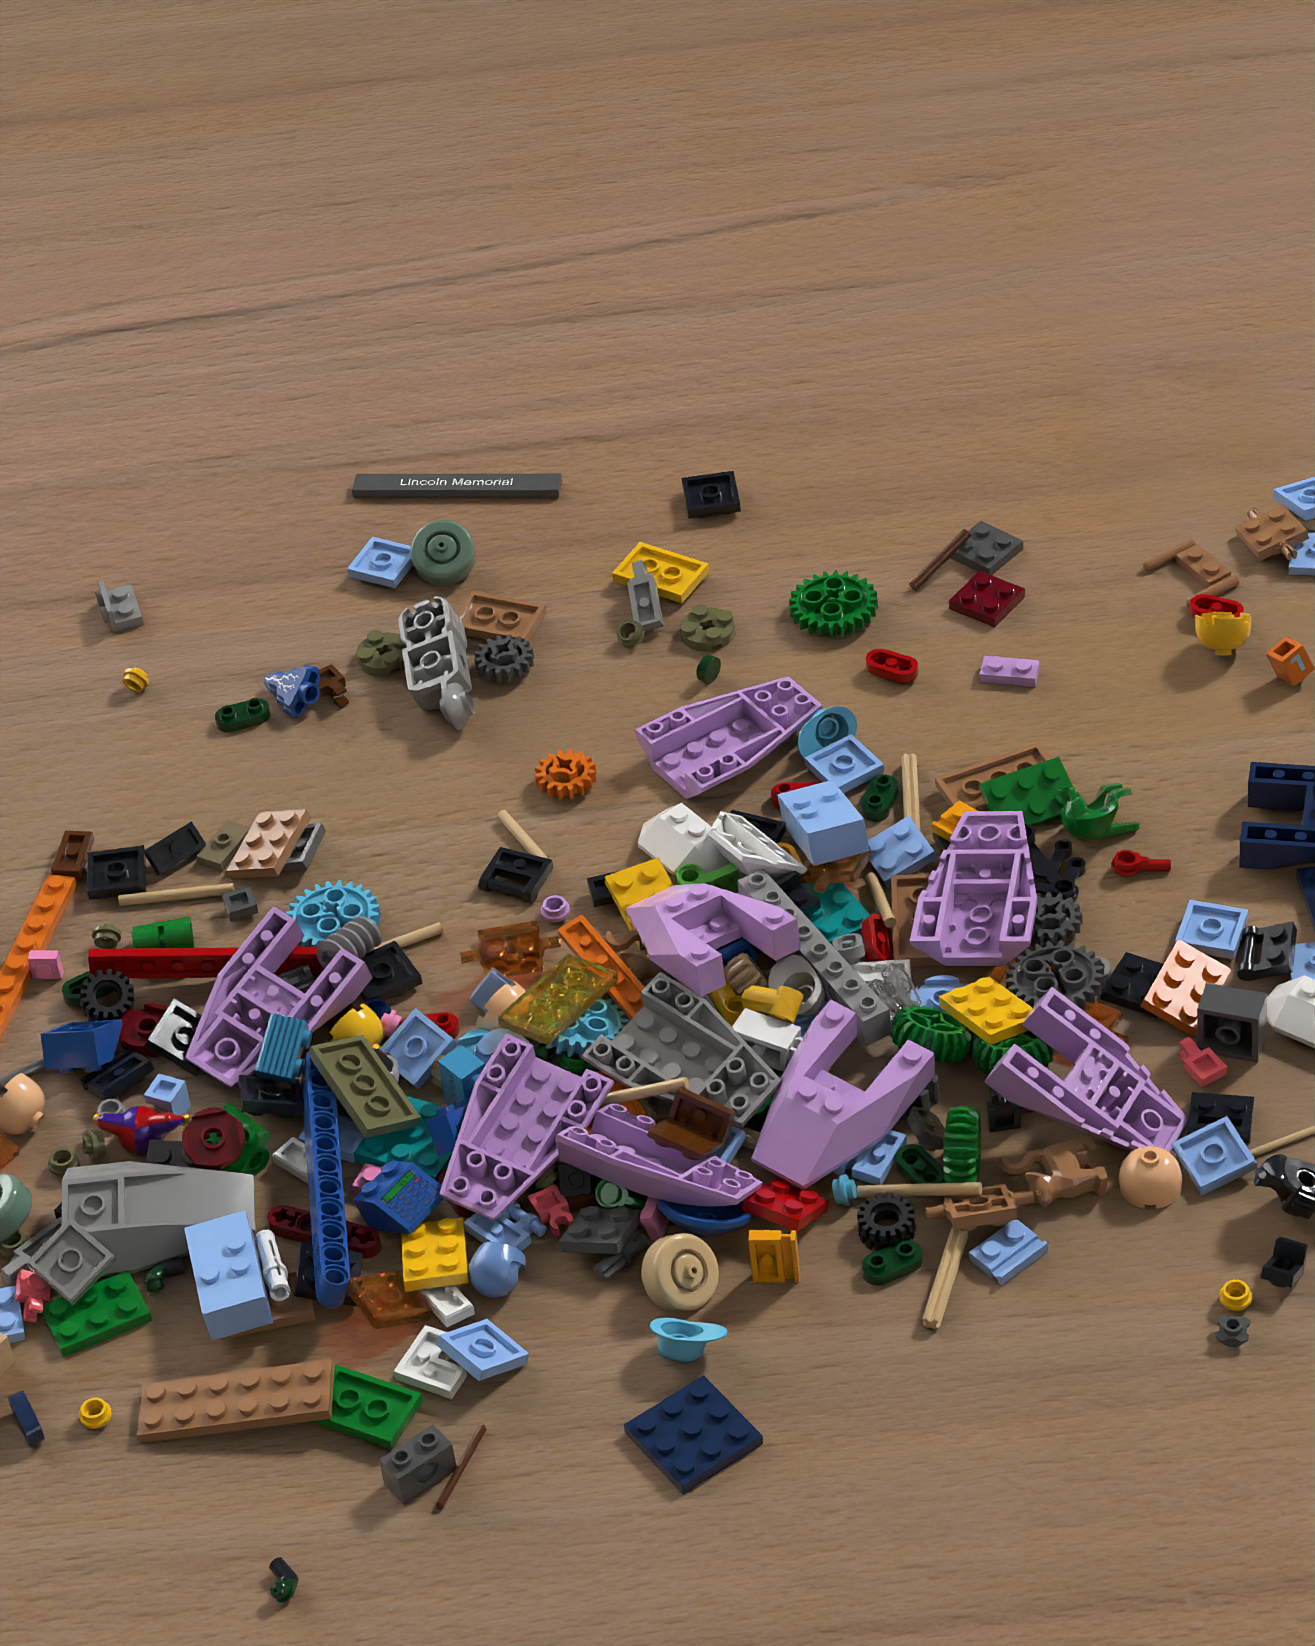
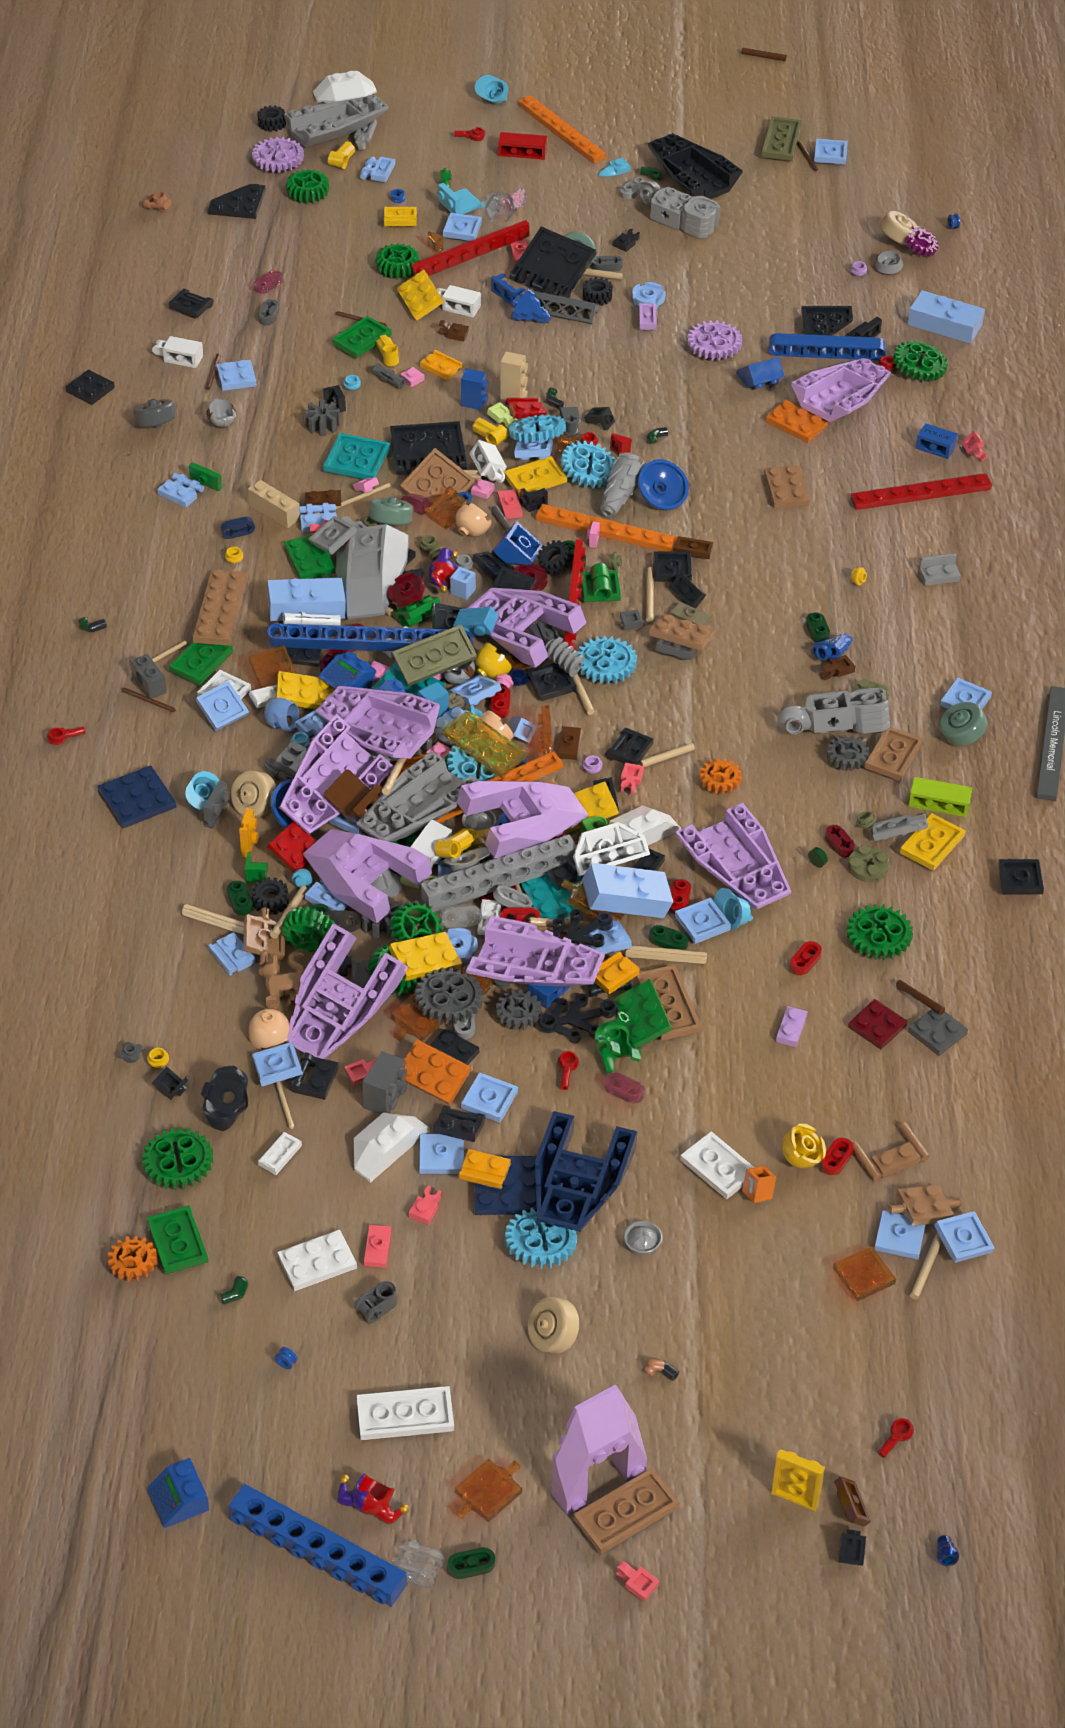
camera: 90 degrees right, 5 degrees up
(351, 1470) = (169, 651): none -> tan axle
(543, 1246) = (301, 738): none -> medium azure plate
(569, 1566) = (58, 735): none -> red plate
(575, 863) = (631, 776): none -> coral plate
(577, 569) = (940, 797): none -> lime brick
(669, 657) = (837, 842): none -> dark red beam
(712, 1309) = (216, 804): none -> dark grey plate
(835, 1253) = (255, 870): none -> green panel
(882, 844) = (603, 922): none -> black plant
(1158, 805) = (625, 1087): none -> clear pink plate
(1261, 707) = (717, 1164): none -> white plate

